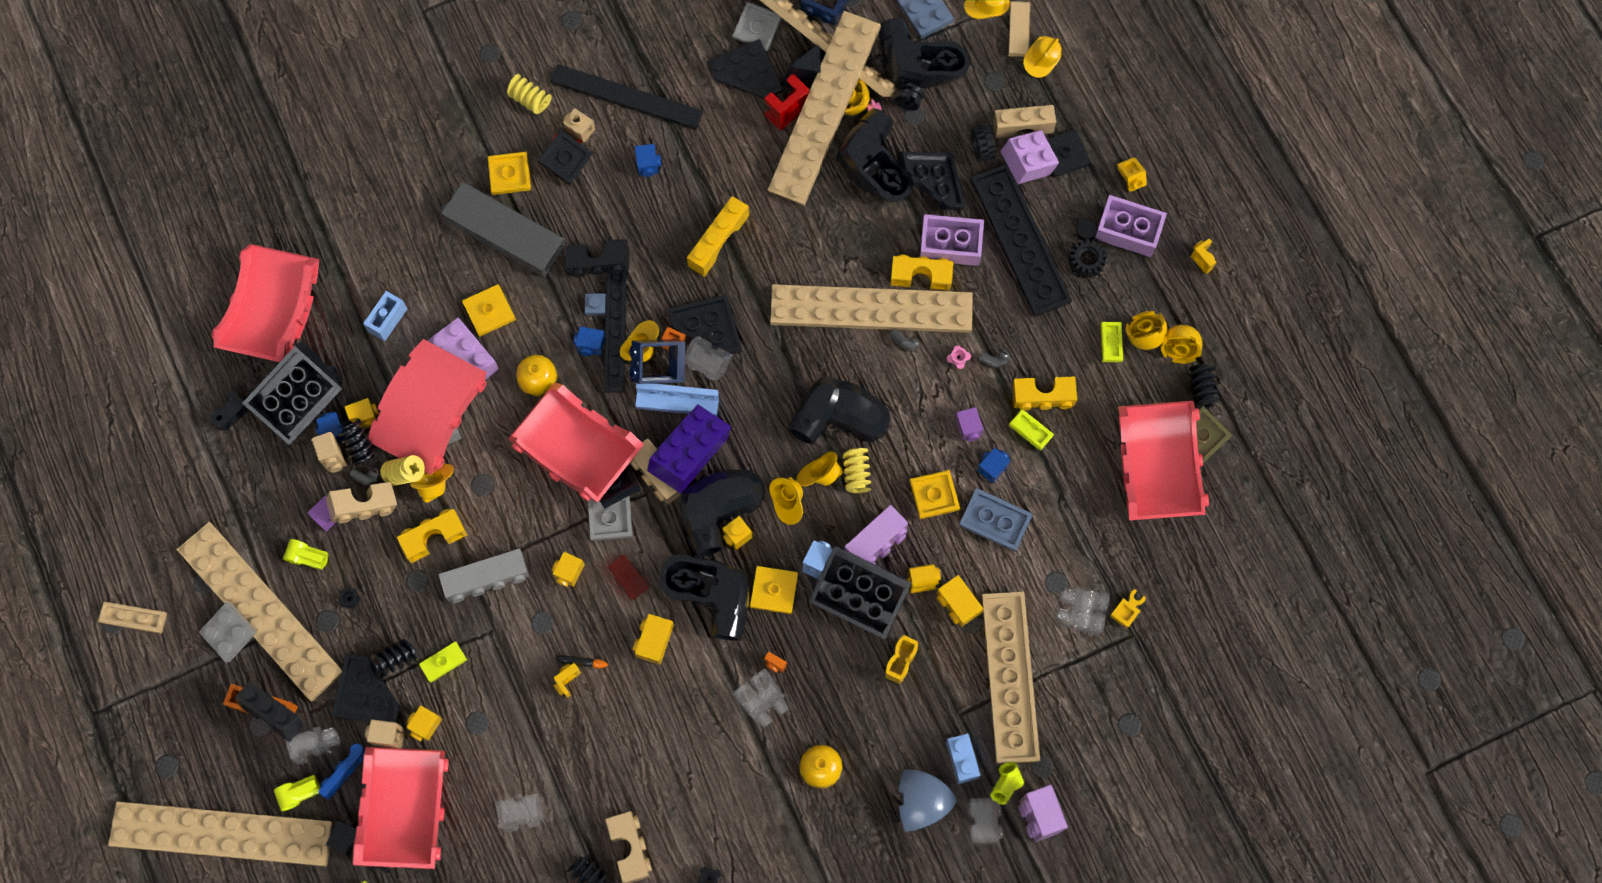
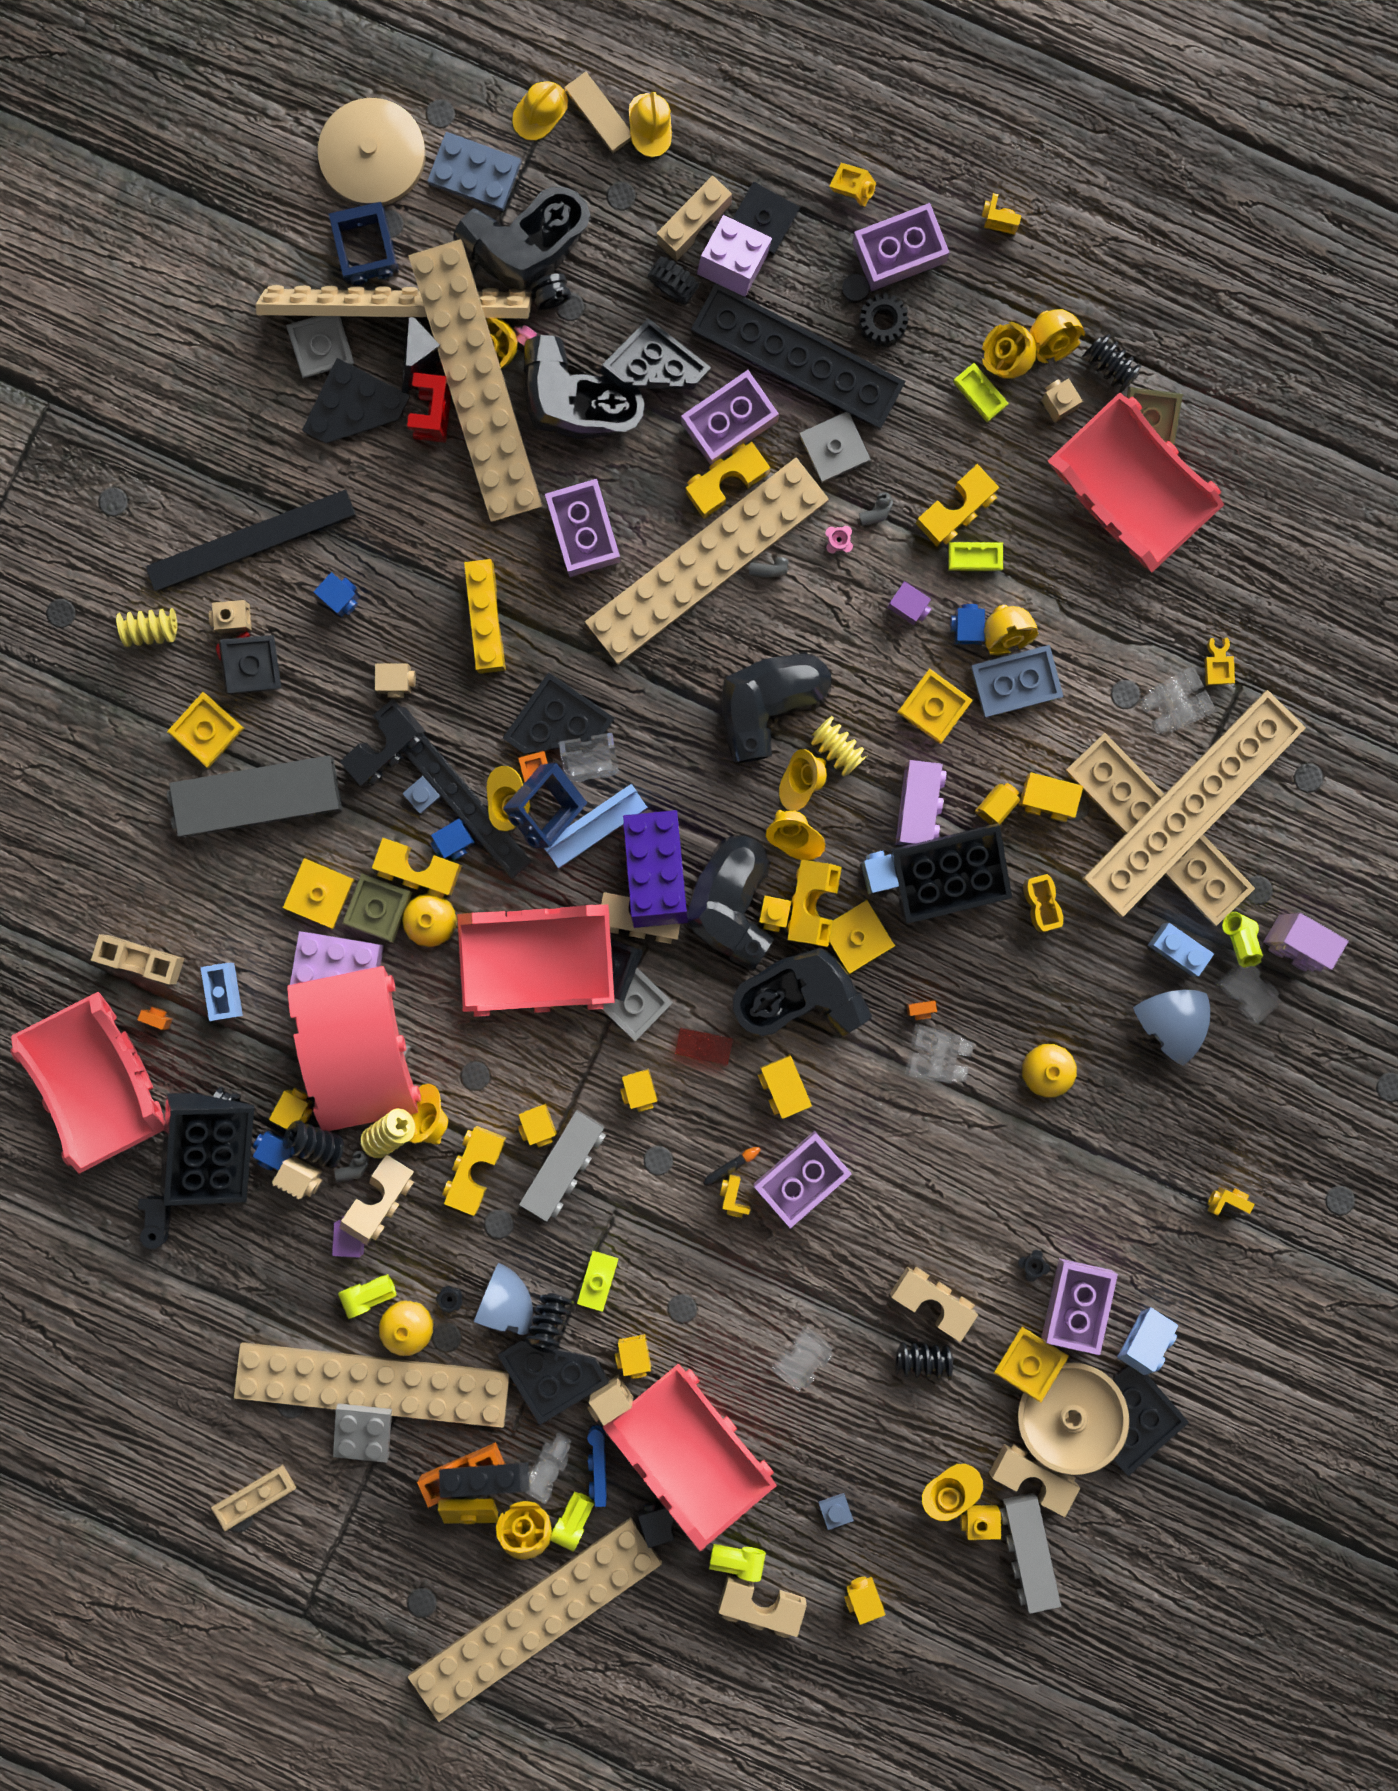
camera: 35 degrees left, 15 degrees up
(243, 729) = (468, 1511): none -> yellow plate
(264, 770) = (524, 1530): none -> yellow cylinder
(309, 593) = (406, 1328): none -> yellow cylinder
(336, 301) = (155, 1017): none -> orange plate
(357, 261) = (137, 958): none -> tan arch
(378, 624) = (506, 1303): none -> brick
(490, 540) = (537, 1126): none -> yellow brick
(513, 344) = (377, 908): none -> olive plate
(563, 354) = (393, 861): none -> yellow arch
(615, 701) = (802, 1179): none -> lavender brick
(637, 229) = (394, 679): none -> tan brick
(773, 535) = (812, 882): none -> yellow arch
(815, 232) = (583, 528): none -> lavender brick
(1000, 305) = (834, 447): none -> light grey plate
(1016, 485) = (1009, 628): none -> yellow cylinder
(1043, 676) = (1193, 804): none -> tan plate
(1156, 382) = (1061, 399): none -> tan brick

